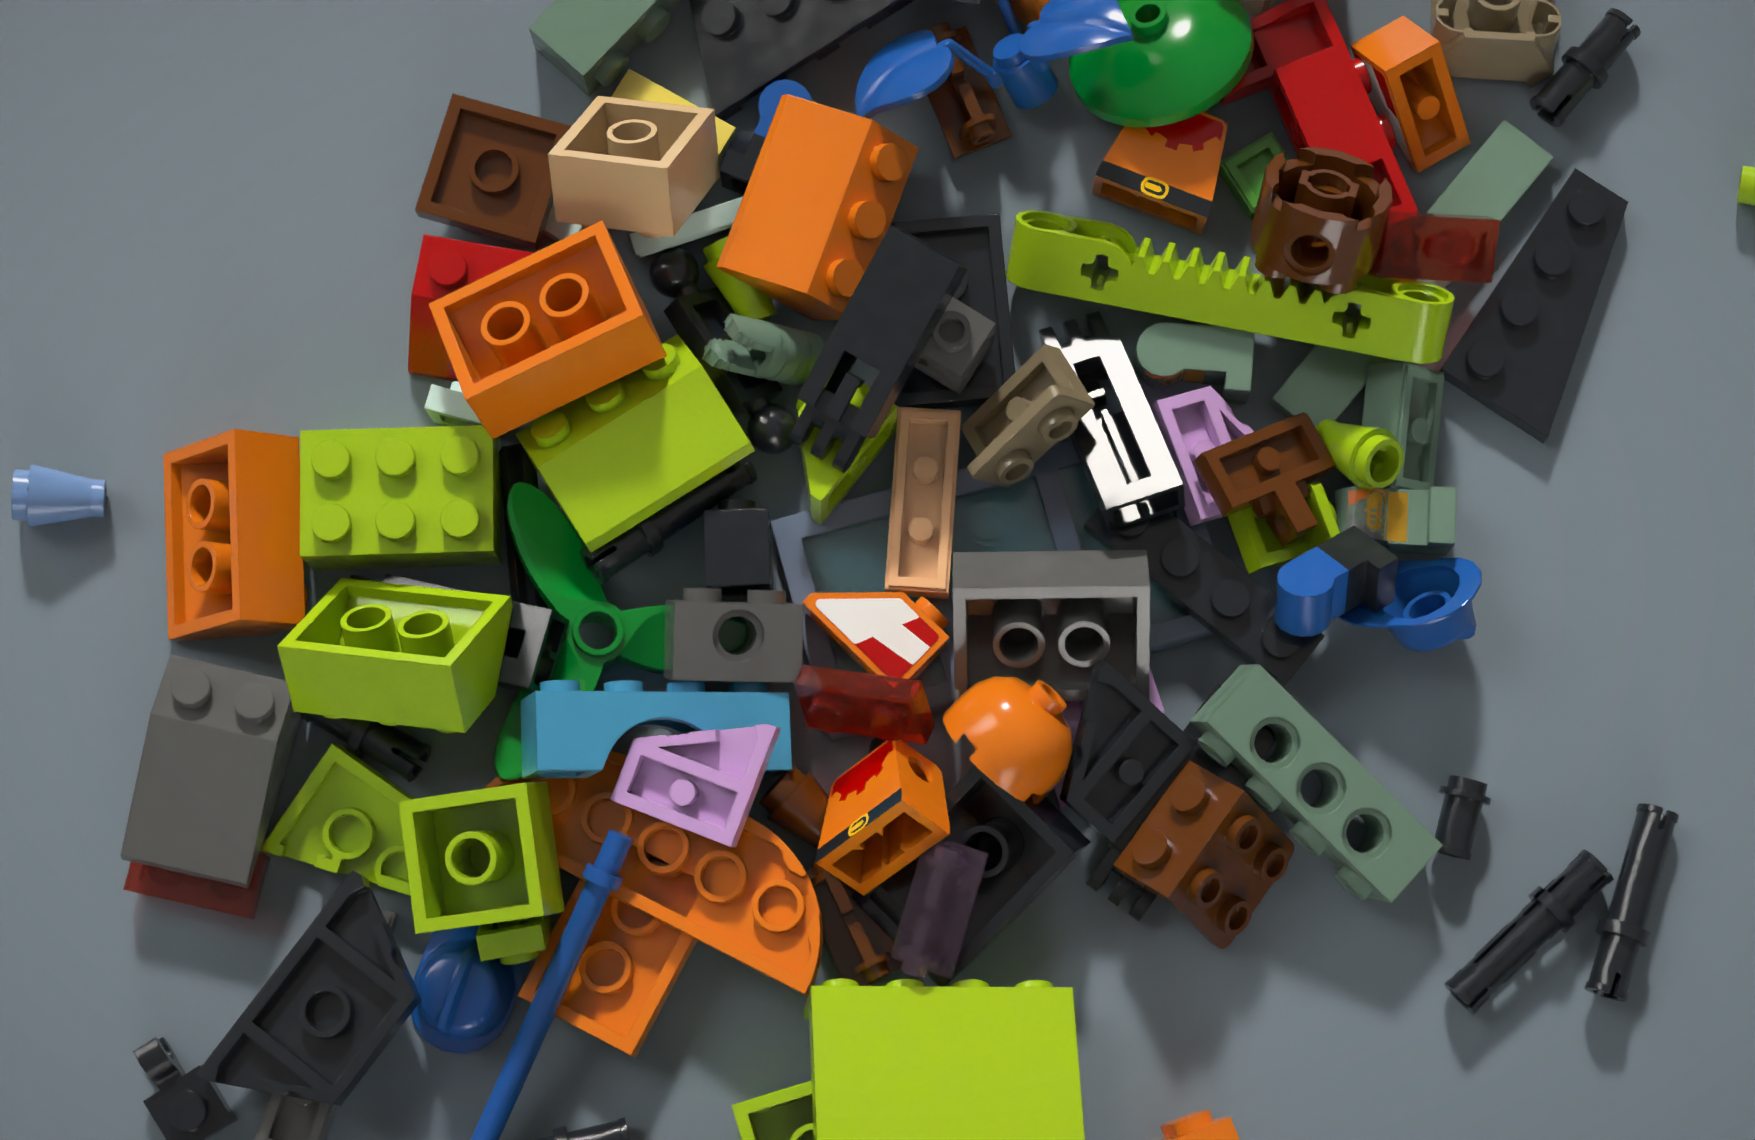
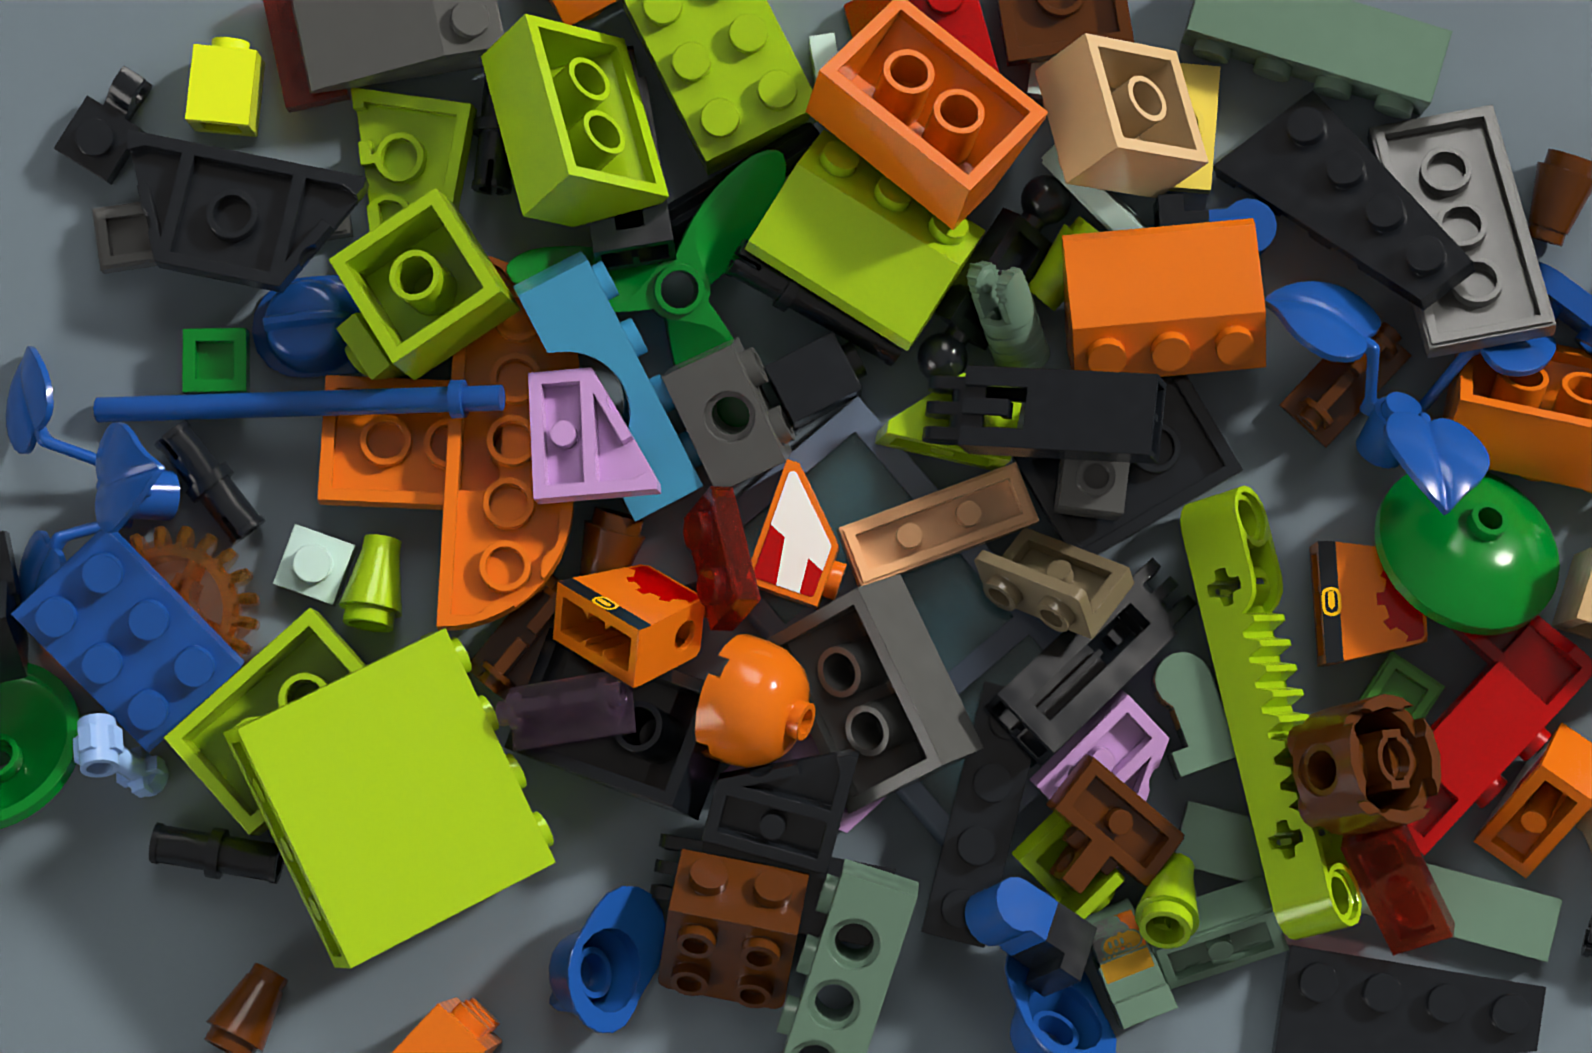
camera: 65 degrees right, 5 degrees up
(201, 966) = (225, 87): none -> neon yellow brick
(453, 1094) = (216, 361): none -> green plate
(688, 1090) = (315, 565): none -> light aqua plate
(736, 1042) = (374, 587): none -> lime cone
(1185, 984) = (609, 961): none -> blue piece

